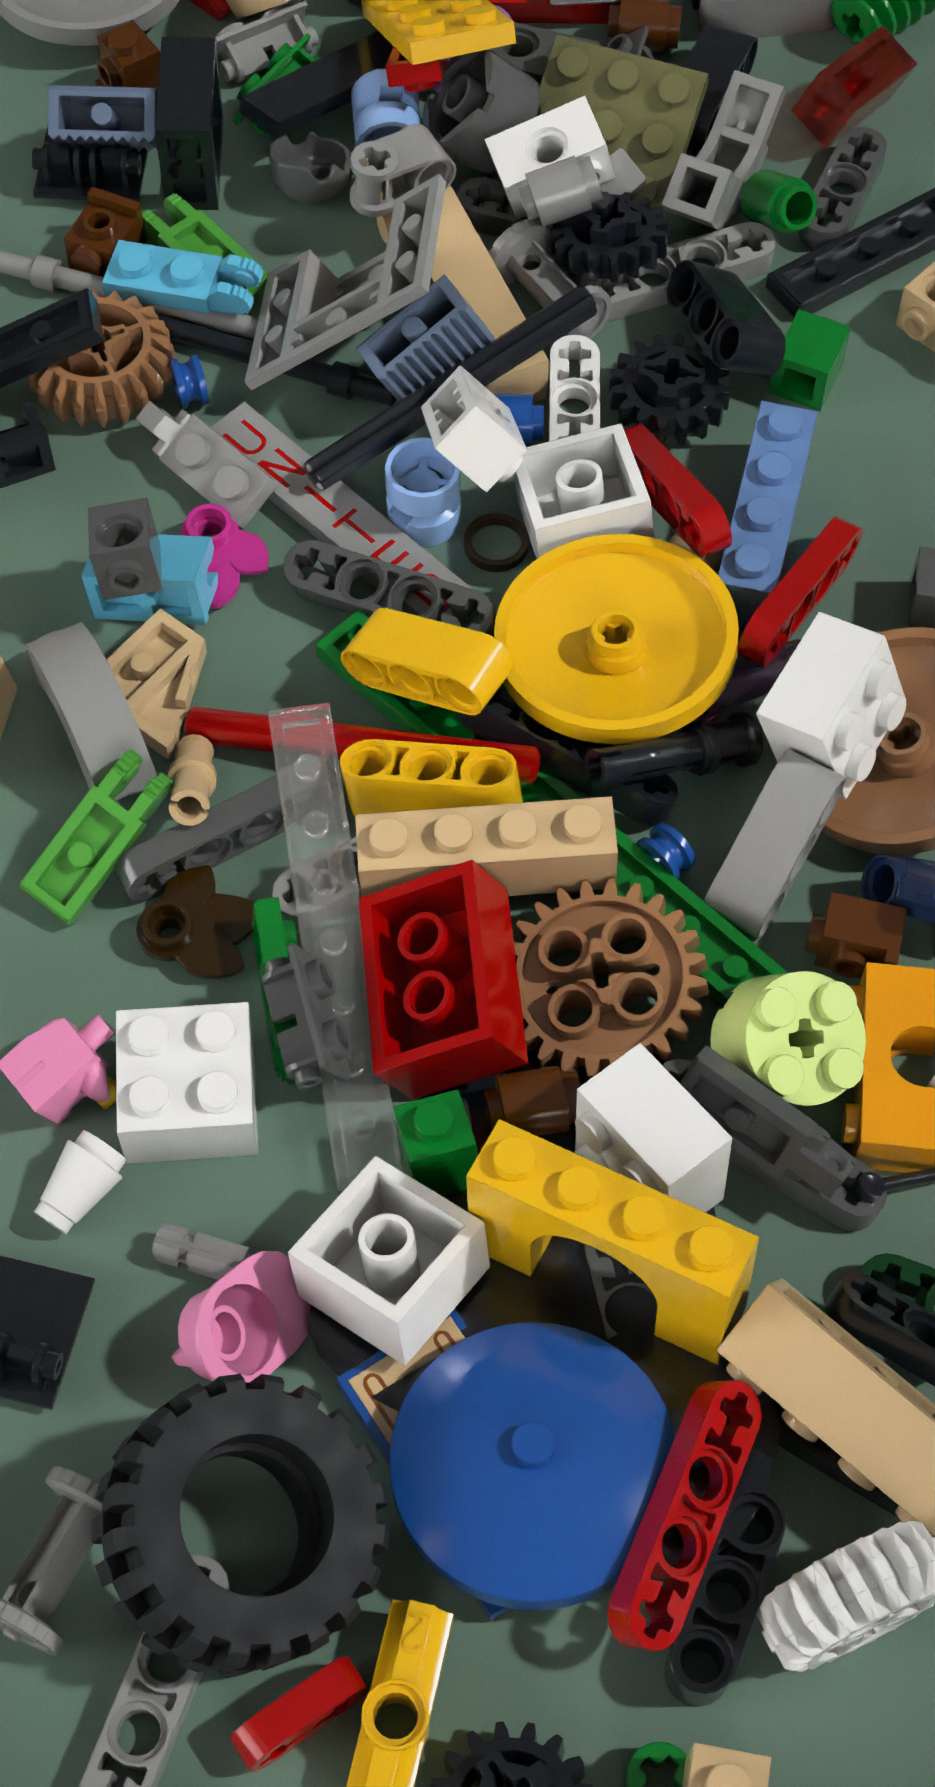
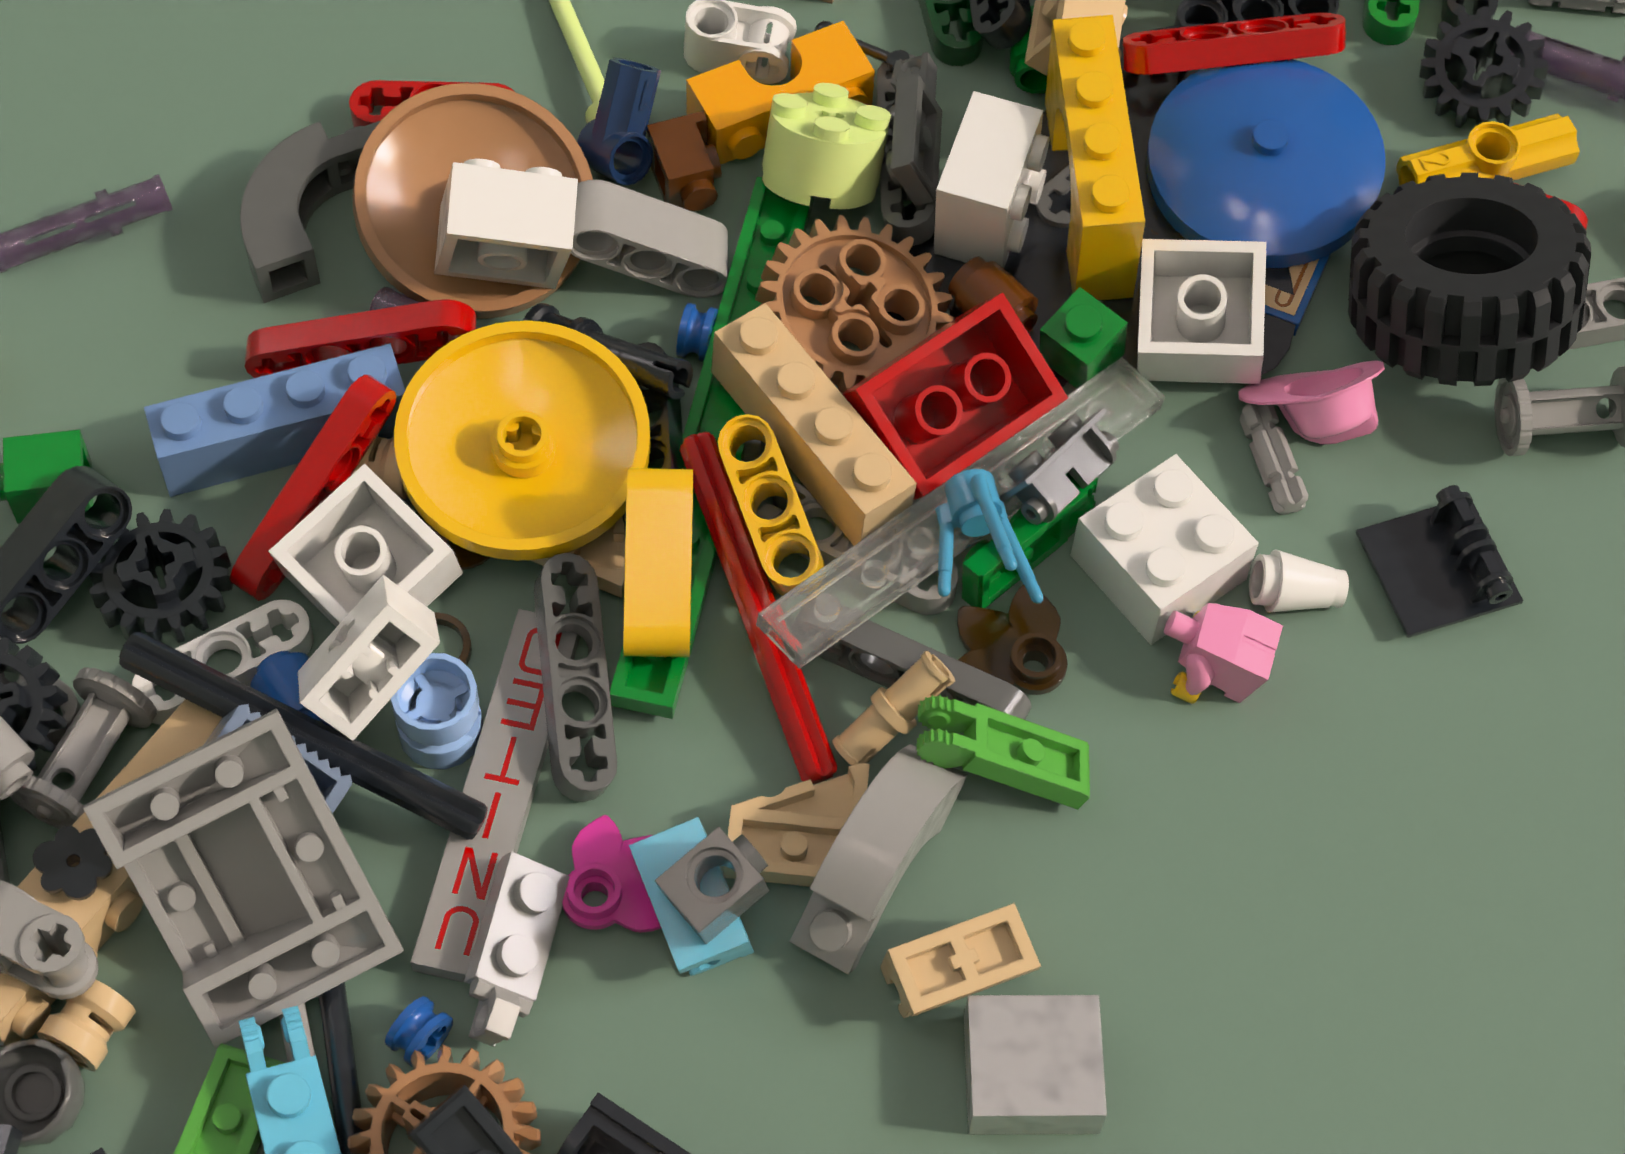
camera: 125 degrees left, 0 degrees up
(310, 910) = (977, 510): none -> dark azure plant
(331, 211) = (88, 1024): none -> tan wheel
(455, 223) = (57, 857): none -> black plant

